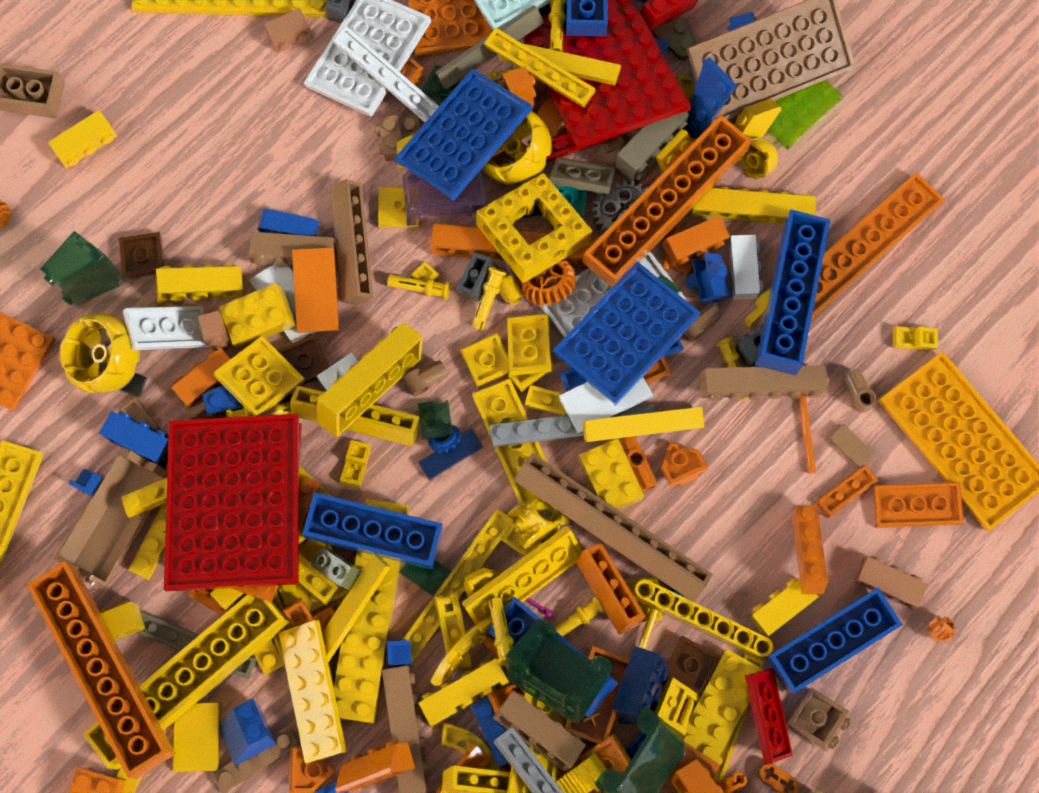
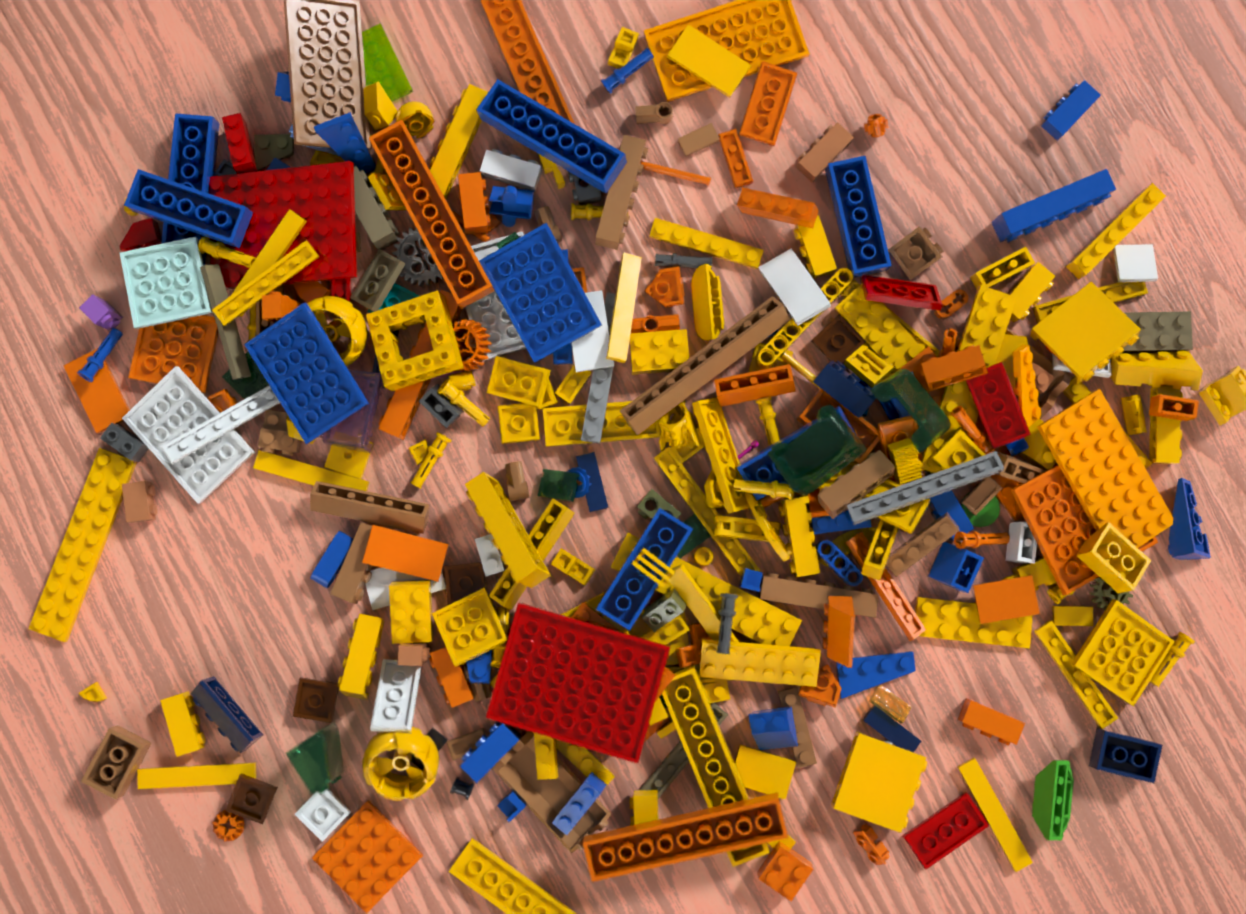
camera: 70 degrees left, 10 degrees up
(25, 226) = (251, 798): none -> reddish brown plate
(29, 298) = (323, 813): none -> white plate
(35, 170) = (193, 775): none -> yellow tile
(89, 50) = (93, 693): none -> yellow tile
(91, 426) = (462, 788): none -> black bush
(103, 175) = (226, 714): none -> dark blue slope
(107, 547) = (579, 803): none -> blue brick
(209, 614) = (666, 729): none -> yellow tile
(352, 635) = (727, 613): none -> dark grey pin
(367, 173) = (305, 472): none -> yellow tile
(382, 519) = (667, 578): none -> yellow tile
(410, 596) = (703, 556): none -> yellow tile
(449, 732) = (847, 567): none -> blue beam
(450, 532) = (660, 503): none -> olive brick
(681, 511) = (707, 303): none -> yellow brick
(716, 472) = (682, 261): none -> dark grey pin
(731, 596) = (794, 287): none -> white tile
(744, 490) = (706, 243): none -> yellow plate
(885, 343) = (619, 76): none -> blue pin
(937, 427) = (709, 61): none -> yellow tile

